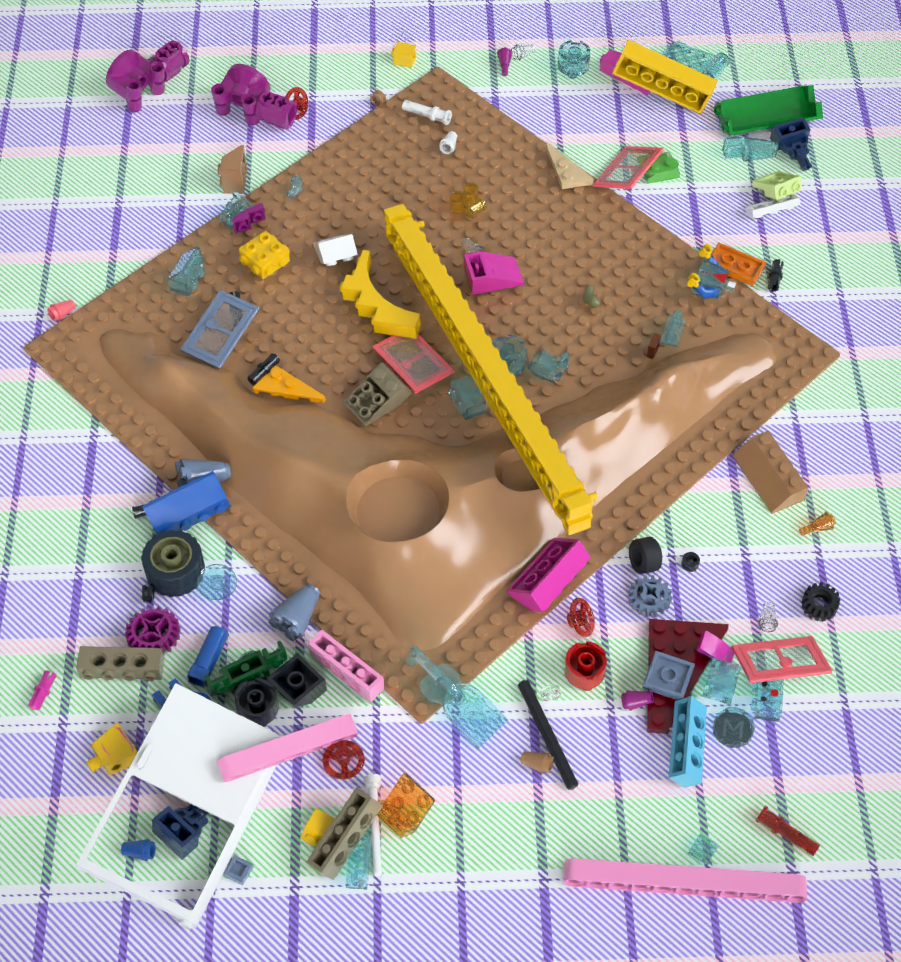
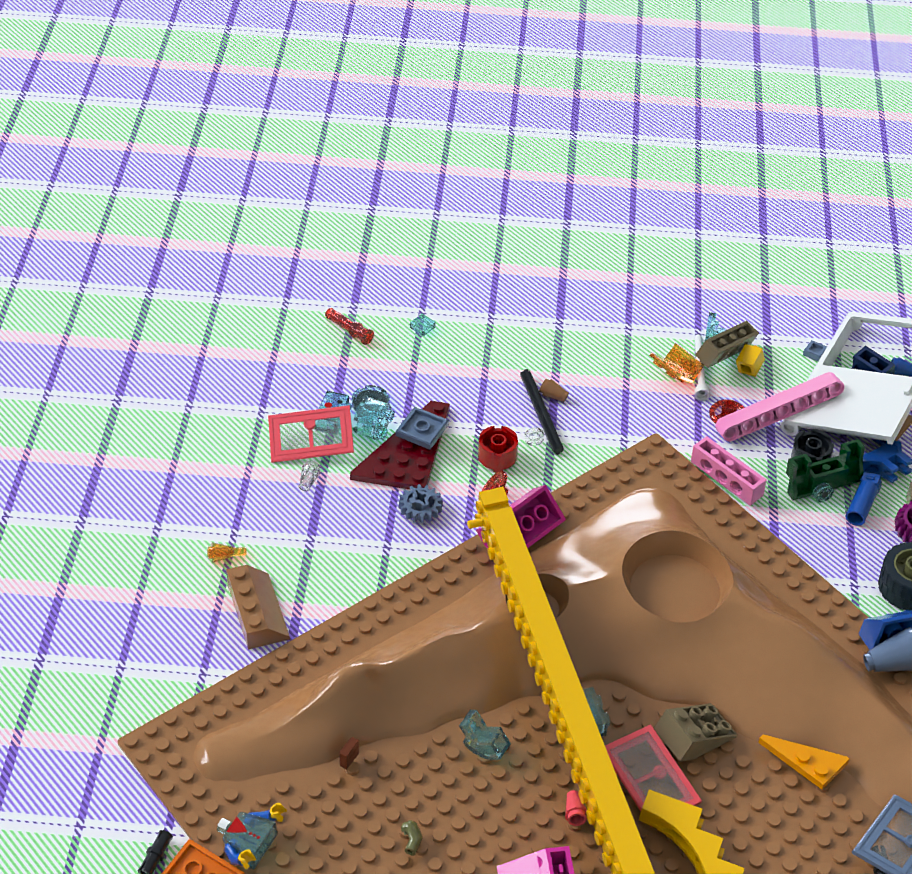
camera: 175 degrees left, 10 degrees down
(217, 574) = (863, 561): clear light blue dish -> none
(263, 369) = (838, 780): black pin -> none
(295, 612) = (782, 514): sand blue cone -> none
(298, 681) = (771, 459): black slope -> none
(473, 715) = (618, 432): clear light blue plate -> none
(513, 352) = (532, 753): clear light blue brick -> none
(635, 699) = (456, 421): magenta cone -> none
(645, 555) = (416, 535): black tyre -> none
(673, 329) = (318, 776): clear light blue hinge -> none
(685, 560) = (373, 538): black bush -> none
(685, 880) = (445, 303): bright pink beam -> none
(688, 742) = (417, 382): medium azure brick -> none
(714, 647) = (374, 444): dark pink slope -> none
(825, 593) = (252, 491): black tyre -> none

